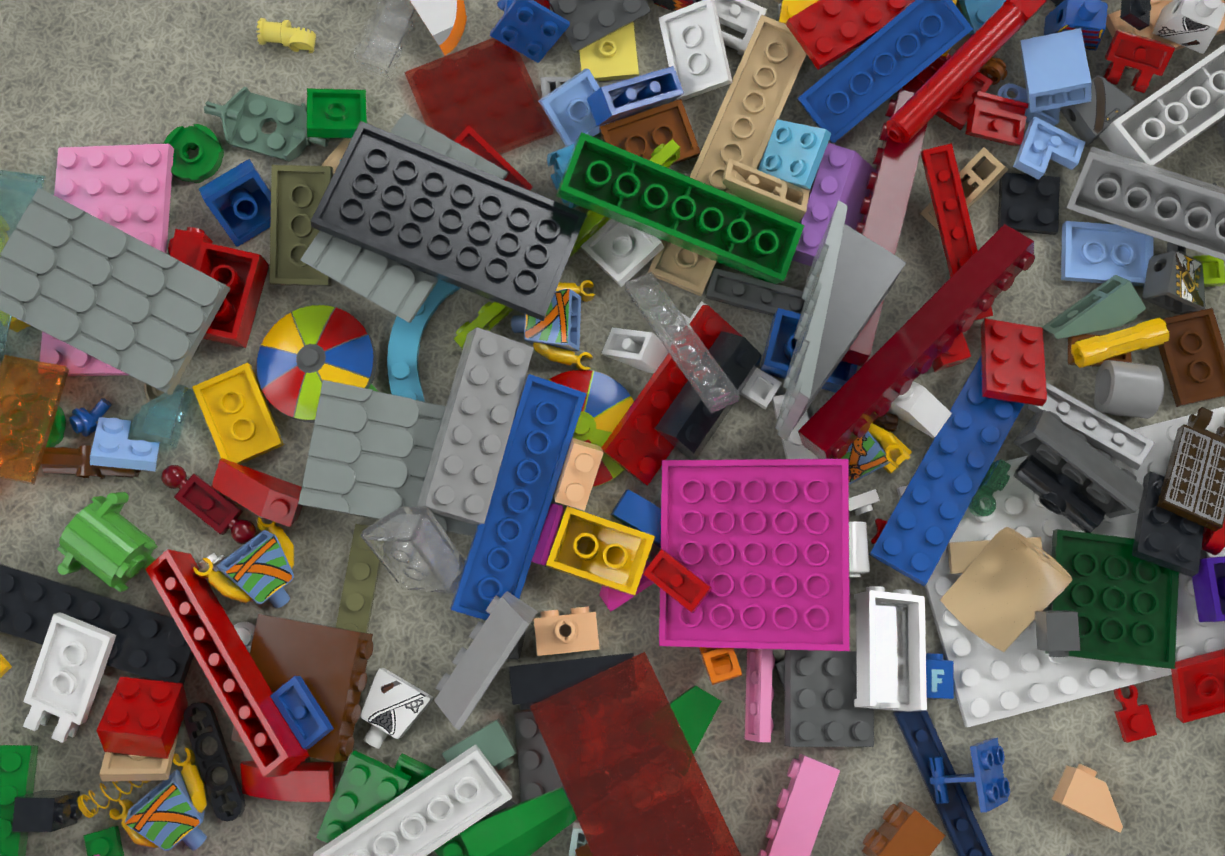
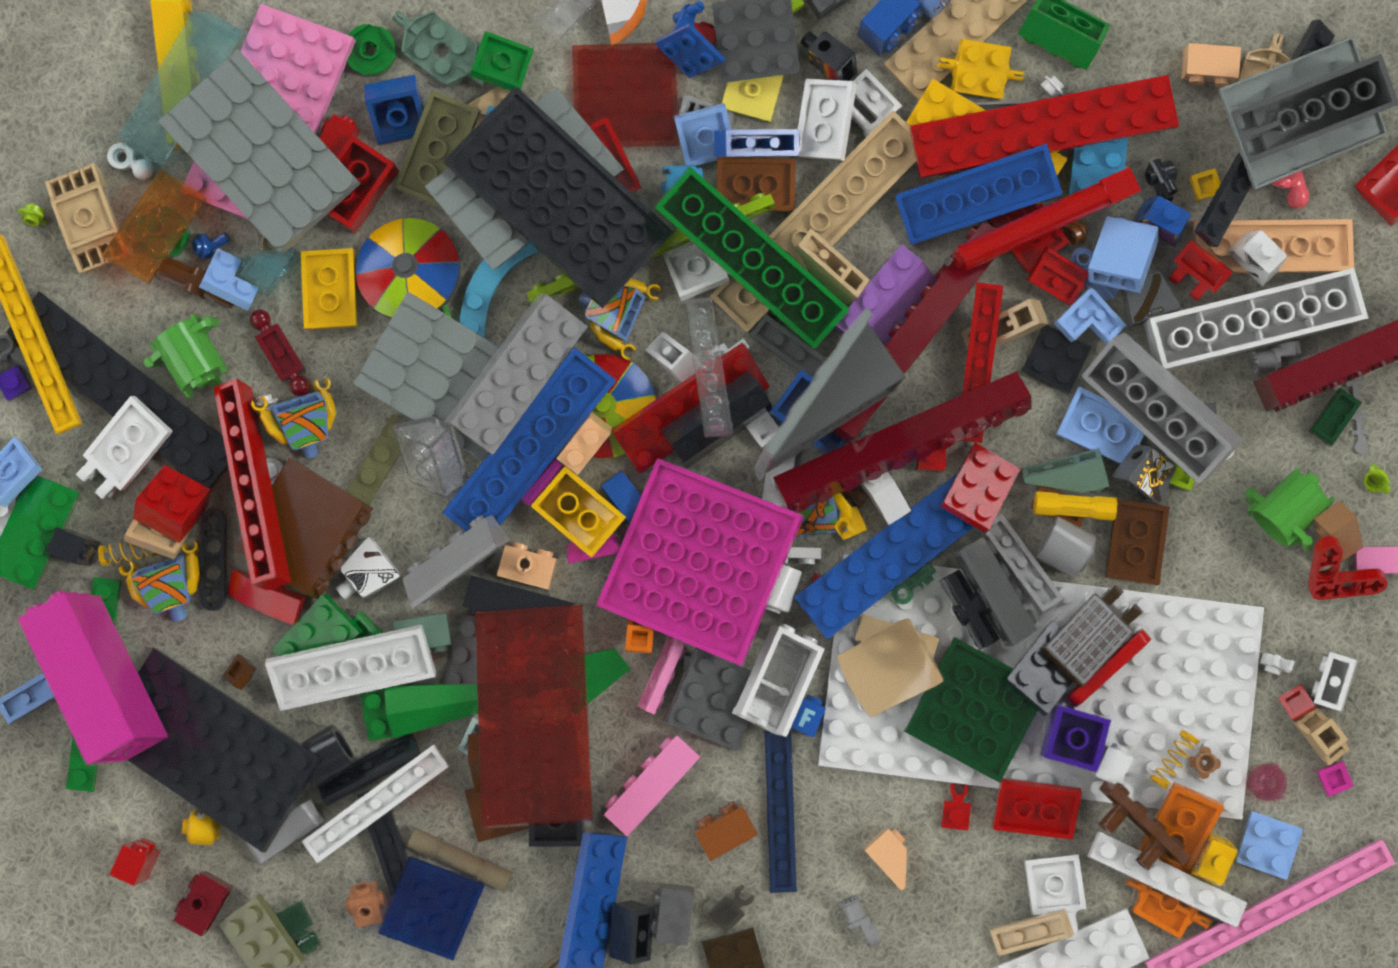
camera: 25 degrees right, 5 degrees up
(259, 492) = (324, 359): red slope -> none
(301, 712) = (296, 547): blue plate -> none
(677, 580) = (629, 559): red plate -> none
(794, 152) = (869, 243): medium azure plate -> none
(988, 774) = (815, 806): blue plate -> none
(1057, 632) = (914, 716): dark grey brick -> none

